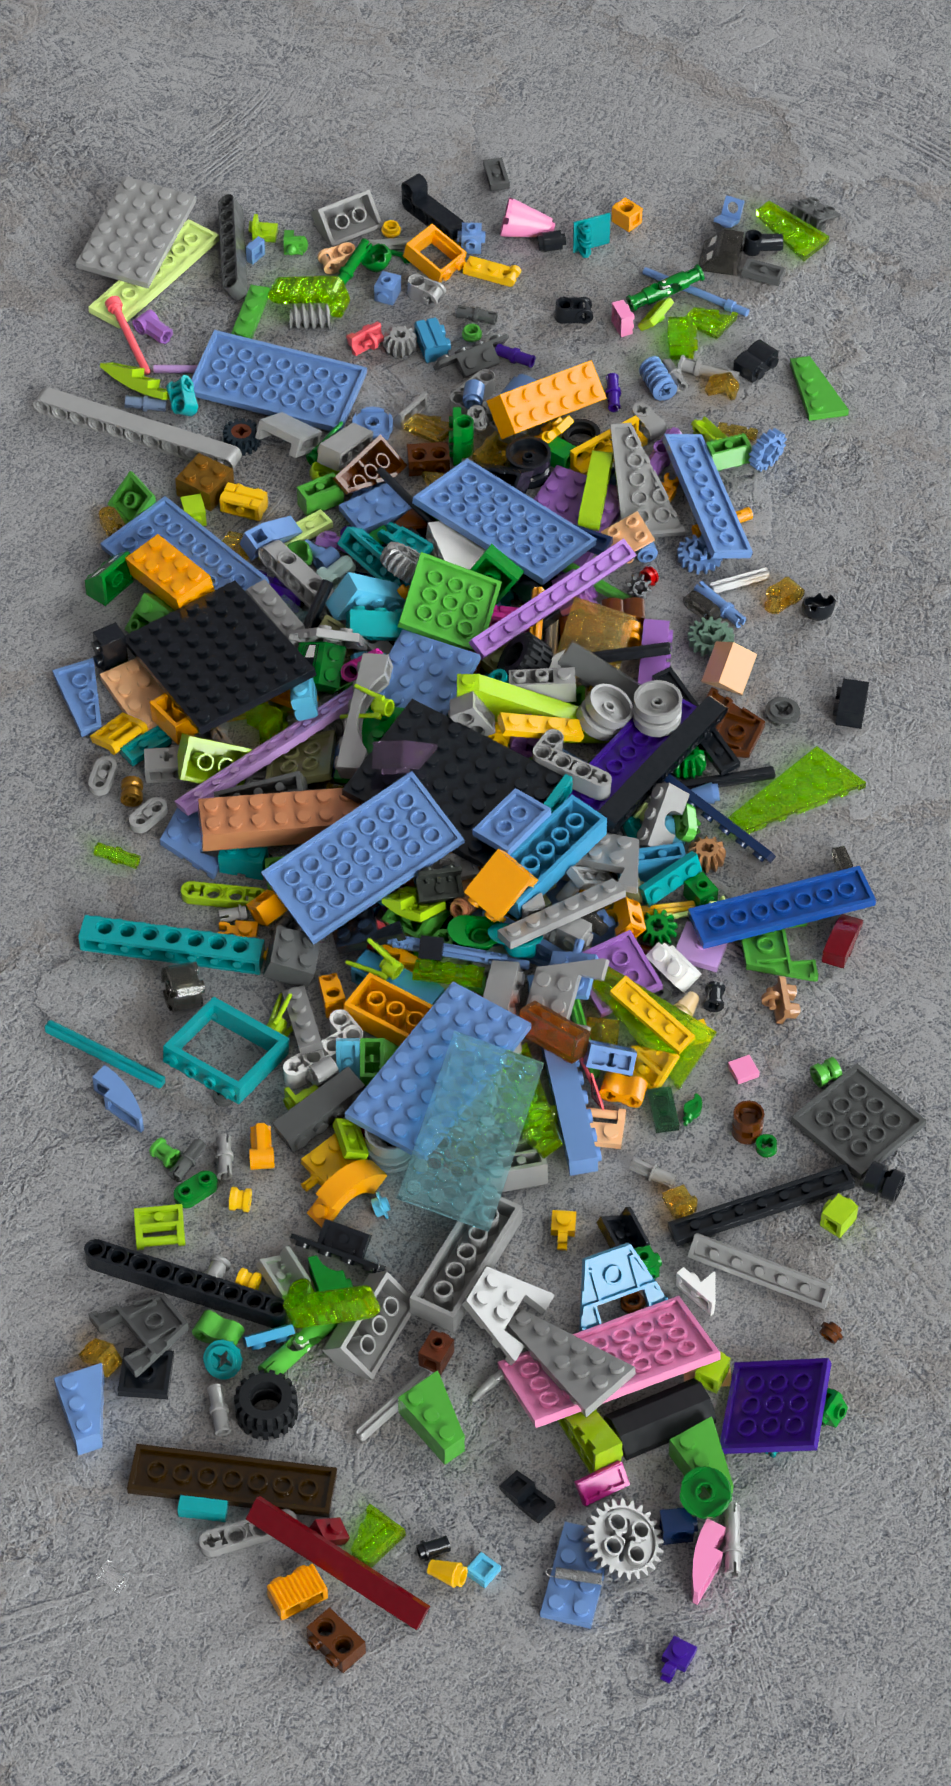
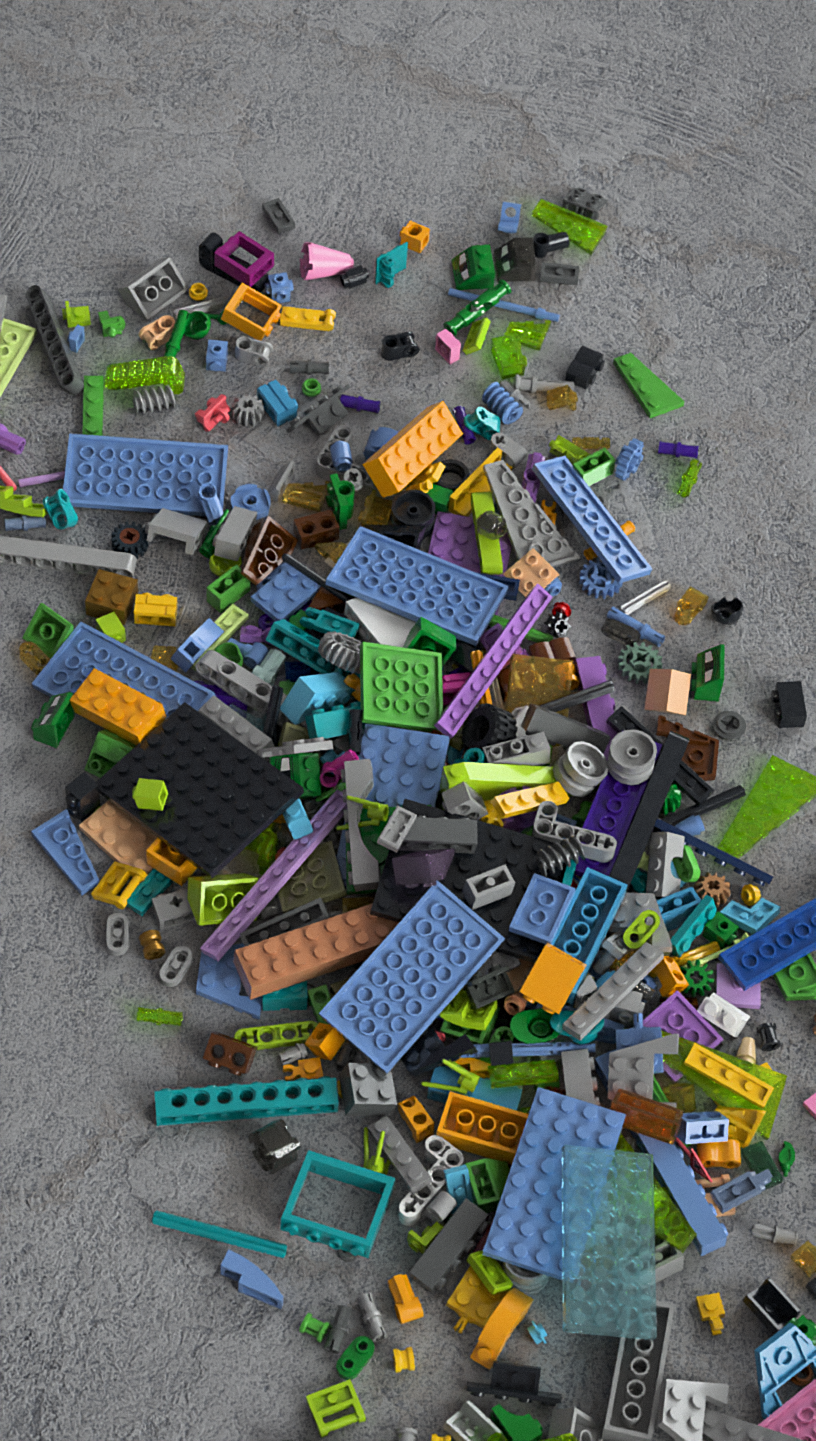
camera: 20 degrees left, 5 degrees up
(168, 649) = (150, 794): none -> lime brick
(171, 897) = (231, 1047): none -> reddish brown brick
(330, 415) = (210, 505): none -> medium blue piece
(386, 715) = (396, 828): none -> light grey plate
(390, 633) = (355, 730): none -> black pin
(414, 726) = (441, 834): none -> dark grey brick
(450, 216) = (256, 271): none -> magenta window
(463, 789) = (488, 887): none -> light grey brick
(545, 777) = (559, 854): none -> dark grey piece
(598, 480) = (491, 525): none -> clear smoke head
(610, 863) = (641, 929): none -> lime plate
(630, 1122) = (740, 1189): none -> sand blue hinge
(632, 391) = (483, 422): none -> teal piece
(676, 252) = (474, 268): none -> green slope
(733, 886) = (751, 919): none -> medium azure plate
(744, 866) = (750, 894): none -> yellow plate
(776, 659) = (708, 674): none -> green slope
(825, 452) = (678, 449): none -> dark purple pin
(827, 480) = (689, 478): none -> clear neon green pin

